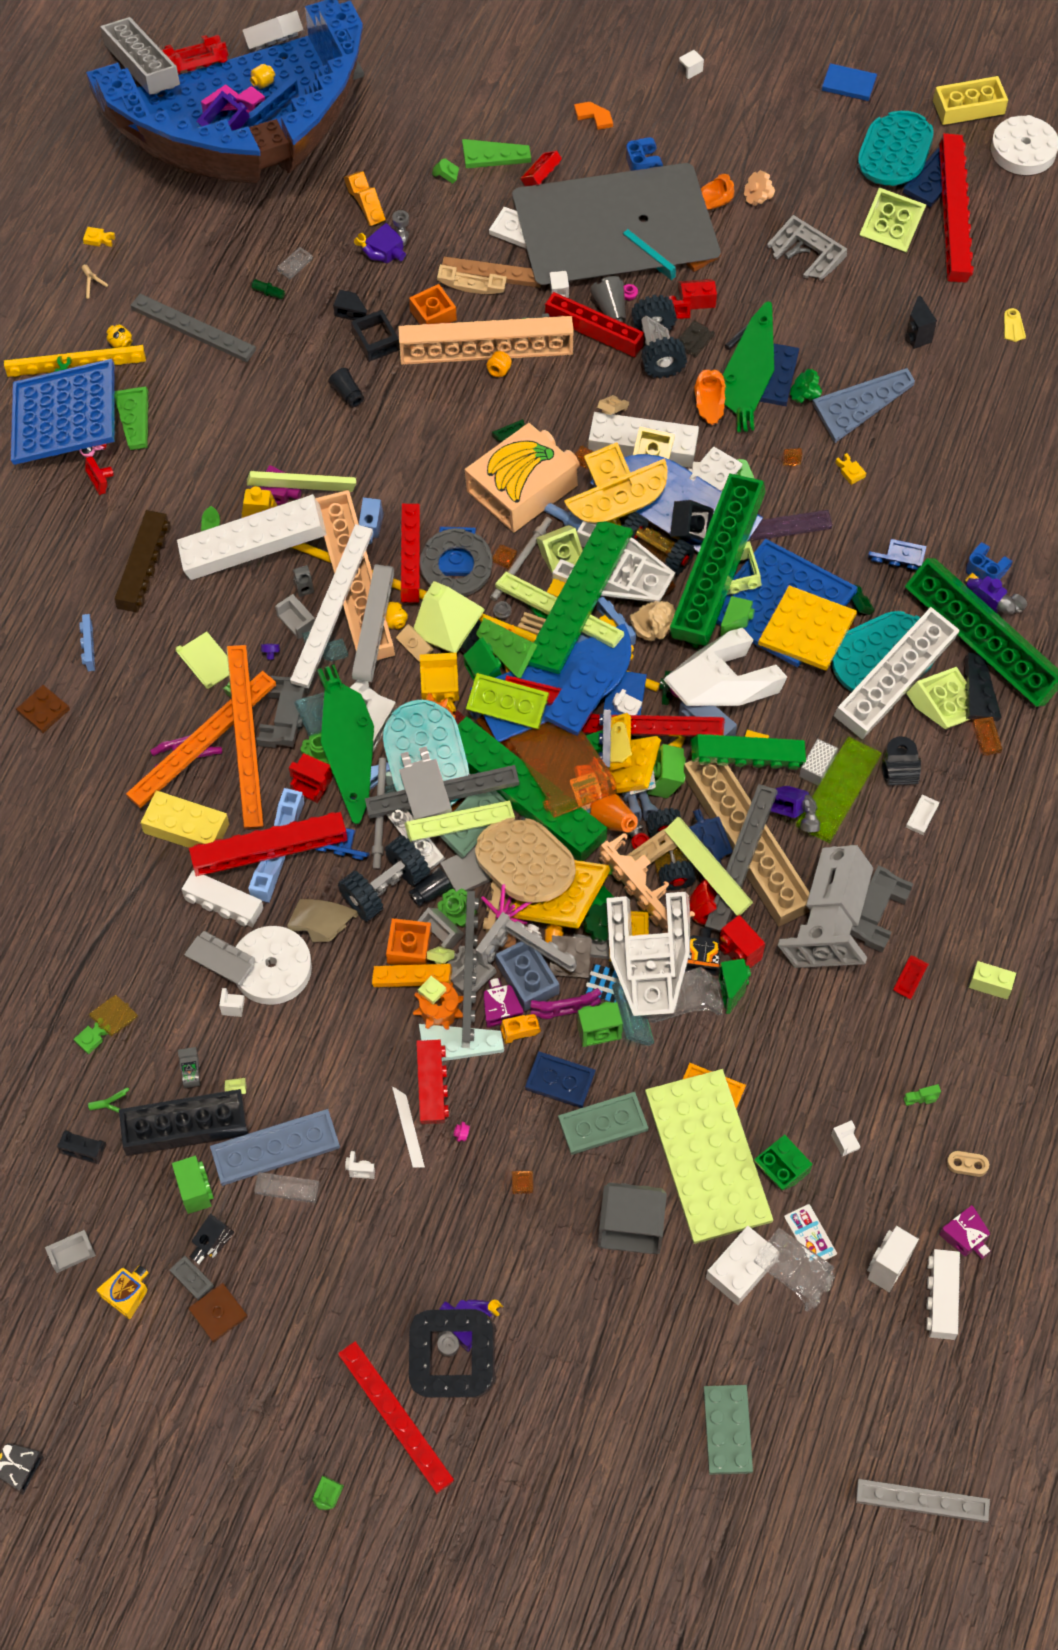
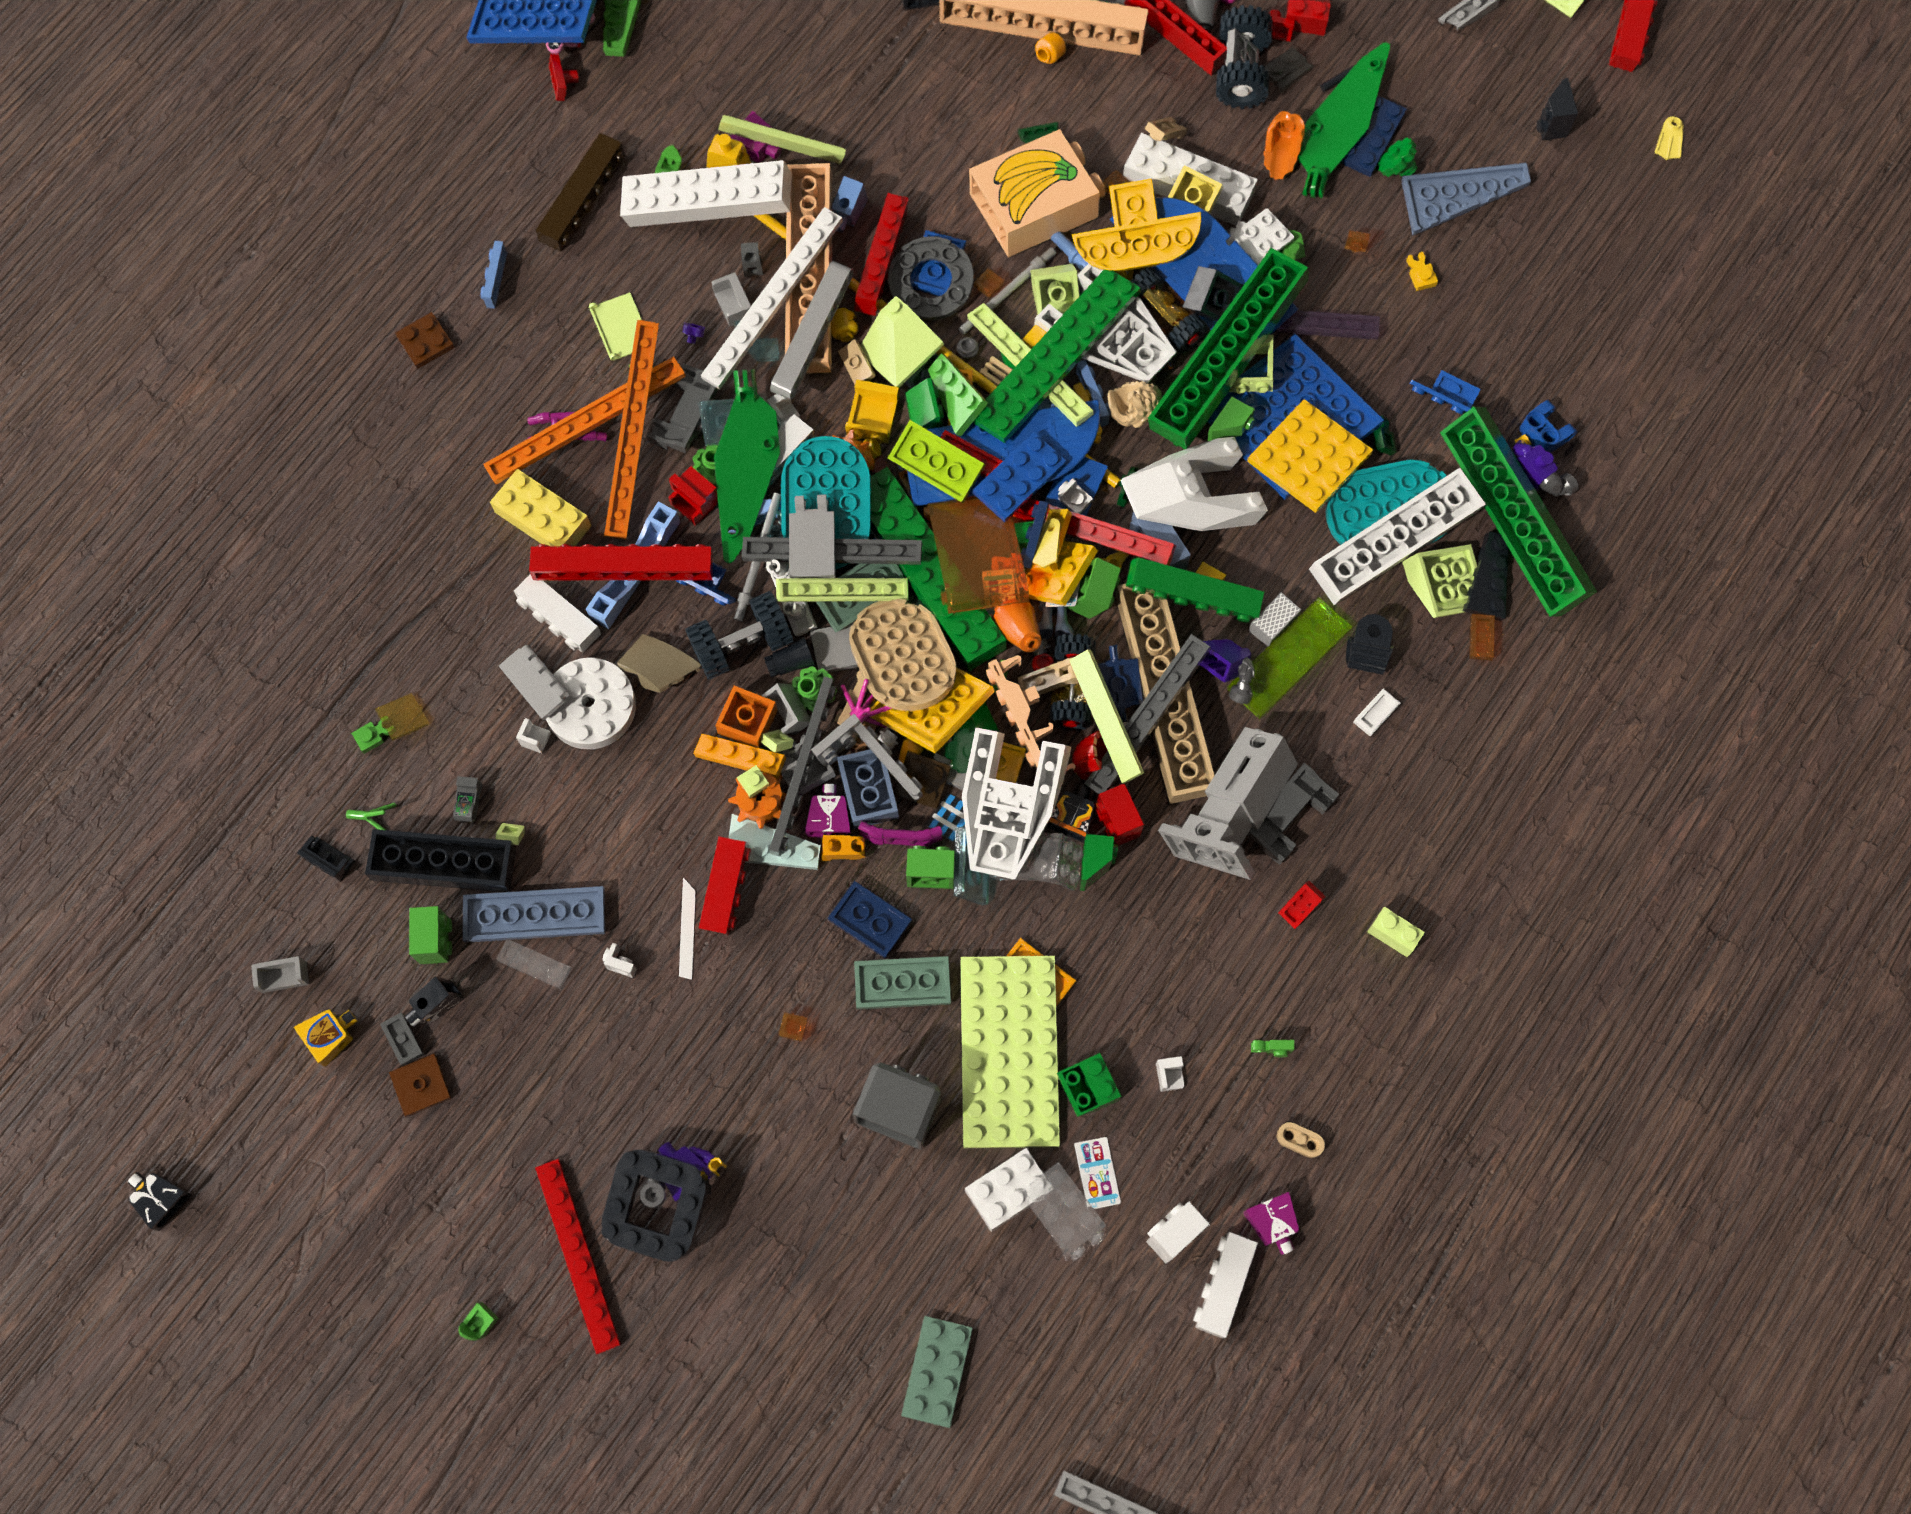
camera: 15 degrees right, 10 degrees up
(345, 385) = (868, 36): black plant -> none
(461, 1131) = (742, 951): dark pink plate -> none

